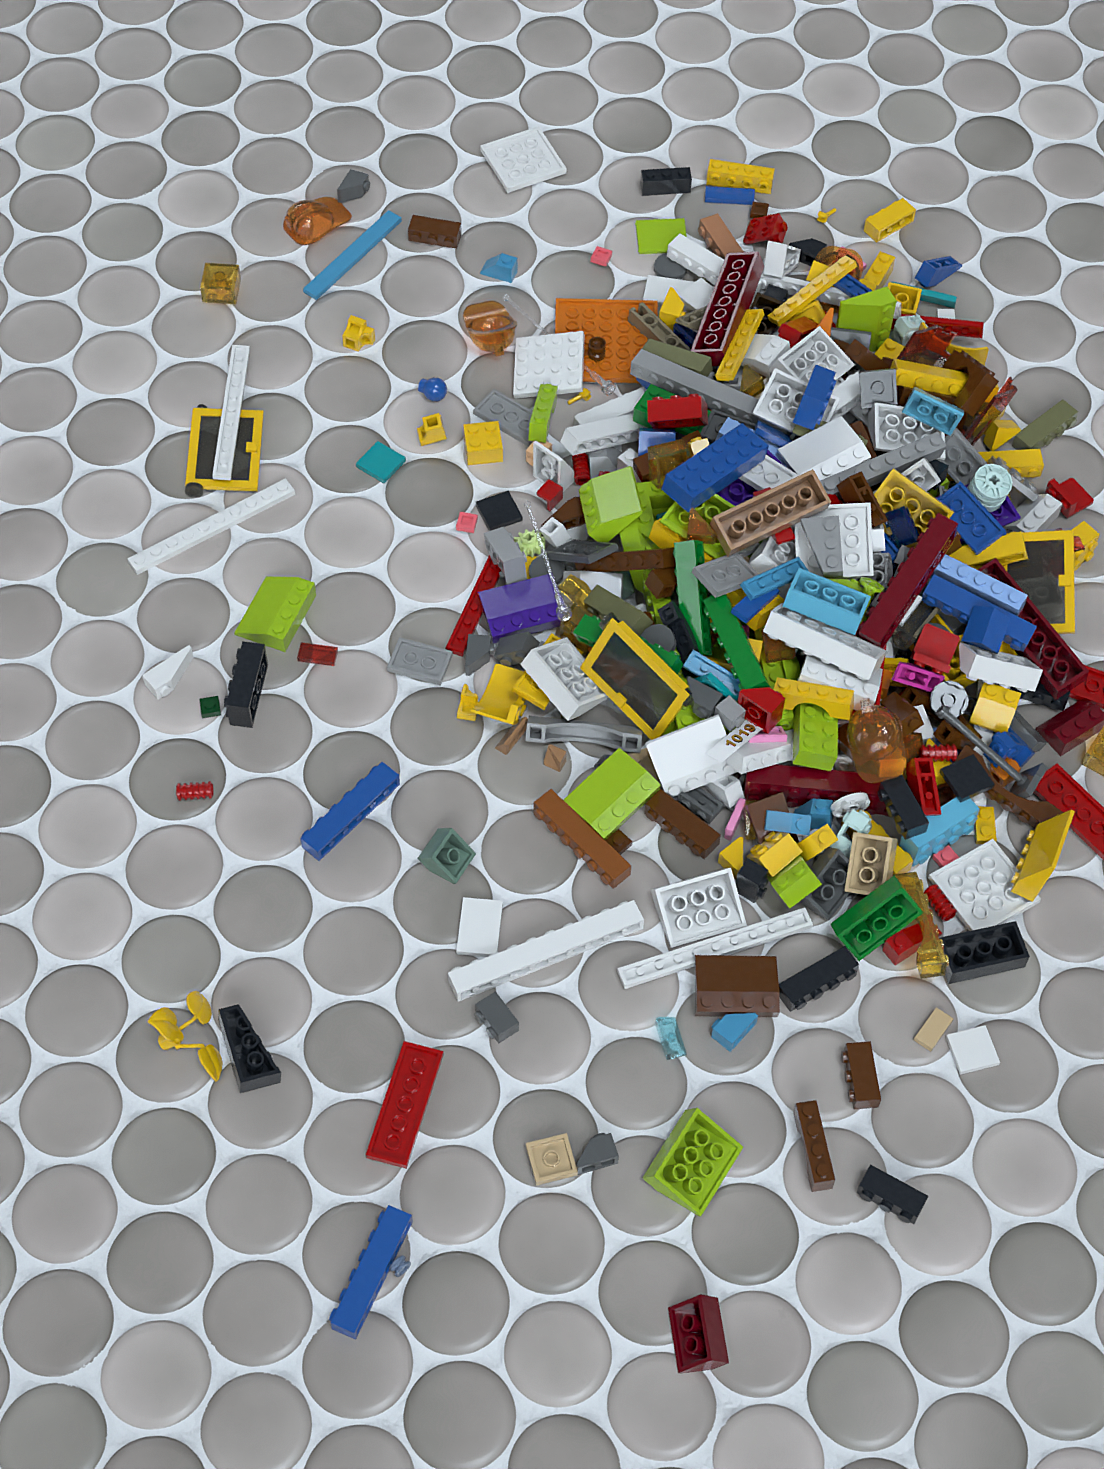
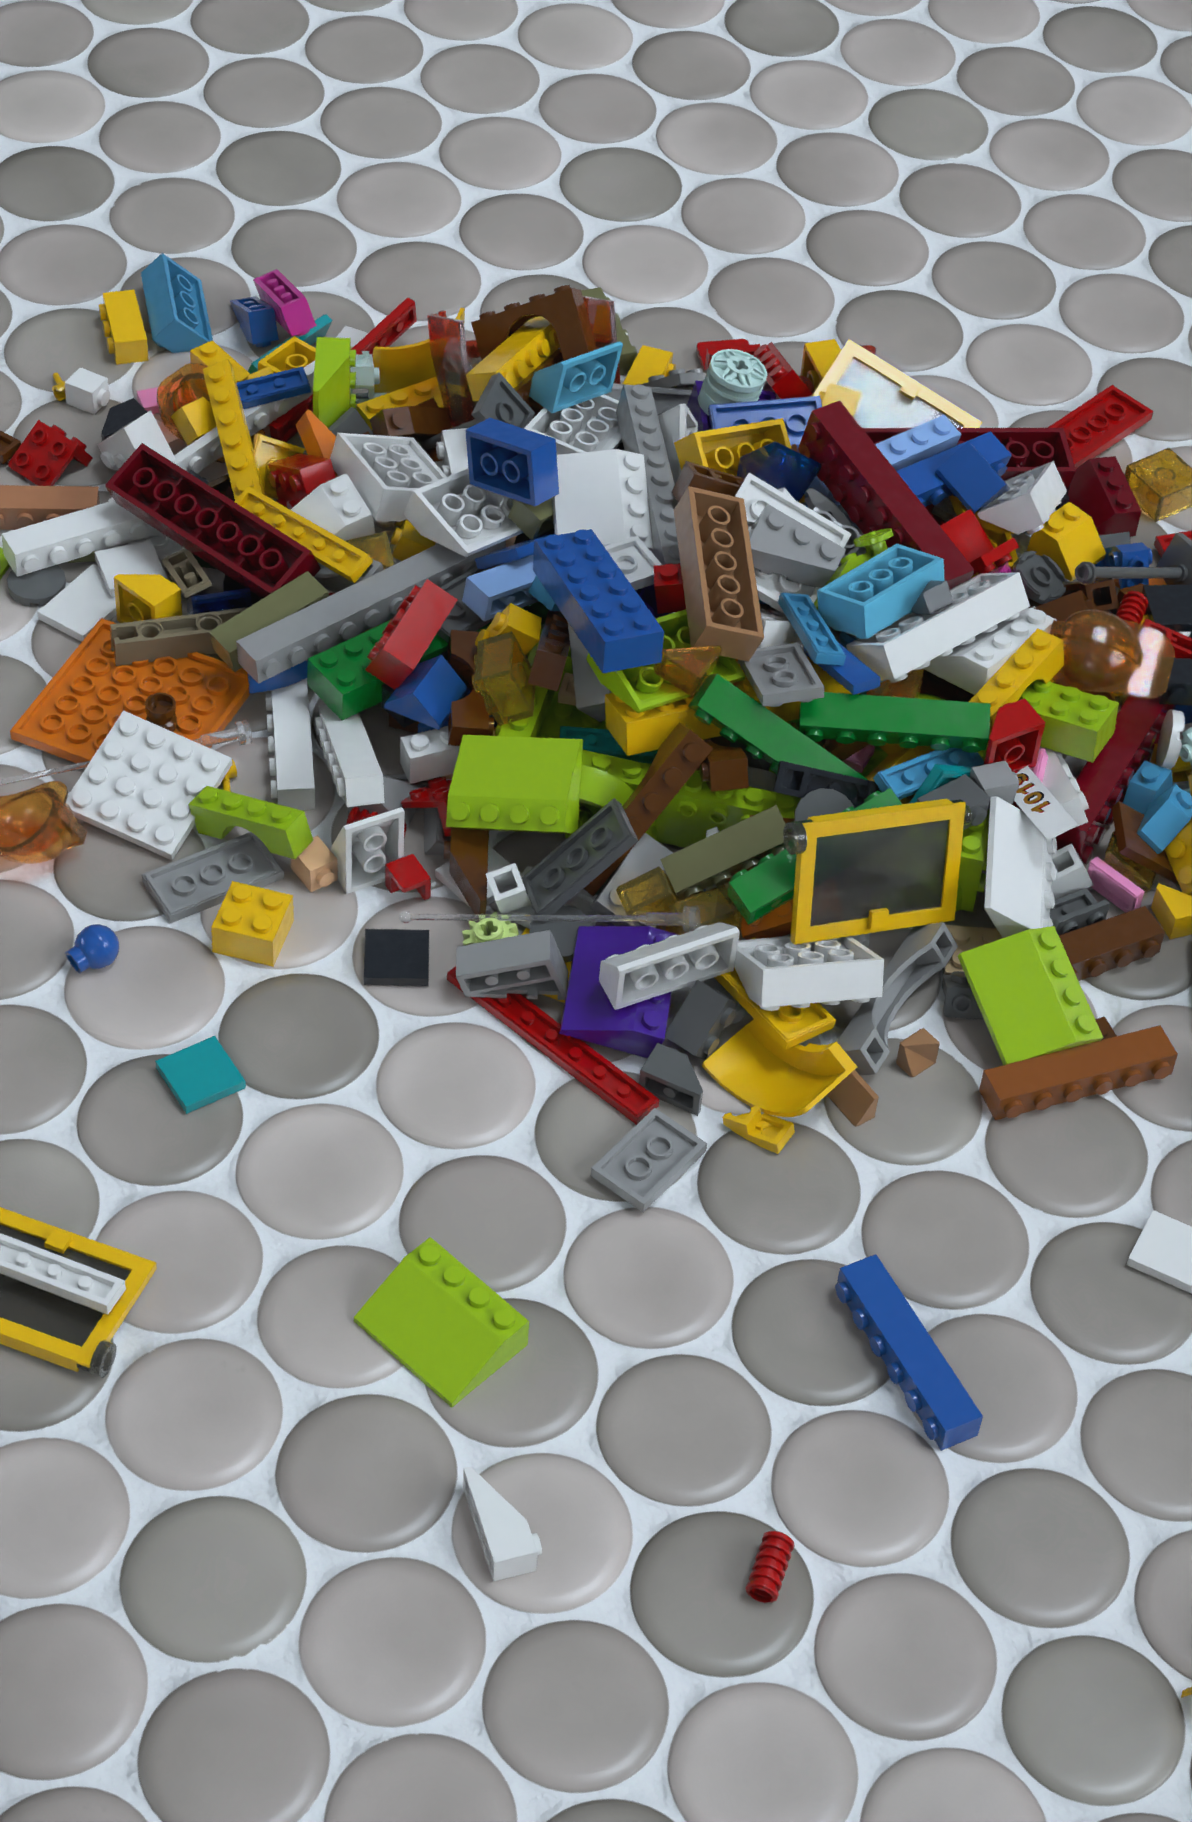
camera: 70 degrees left, 10 degrees down
(210, 707) = (595, 1490): dark green plate -> none
(211, 526) = (196, 1368): white plate -> none
(246, 684) = (594, 1407): black brick -> none
(317, 654) = (560, 1296): clear red tile -> none
(431, 430) = (180, 978): yellow brick -> none
(447, 855) = (1041, 1251): sand green slope -> none
(466, 522) = (399, 1002): coral plate -> none
(527, 612) = (669, 964): none -> white slope
(826, 225) = (87, 390): none -> white brick
(830, 626) = (933, 598): none -> slope
(922, 235) = (175, 306): none -> dark azure slope
(947, 274) = (288, 302): none -> dark pink brick
(1046, 518) = (780, 373): none -> red brick

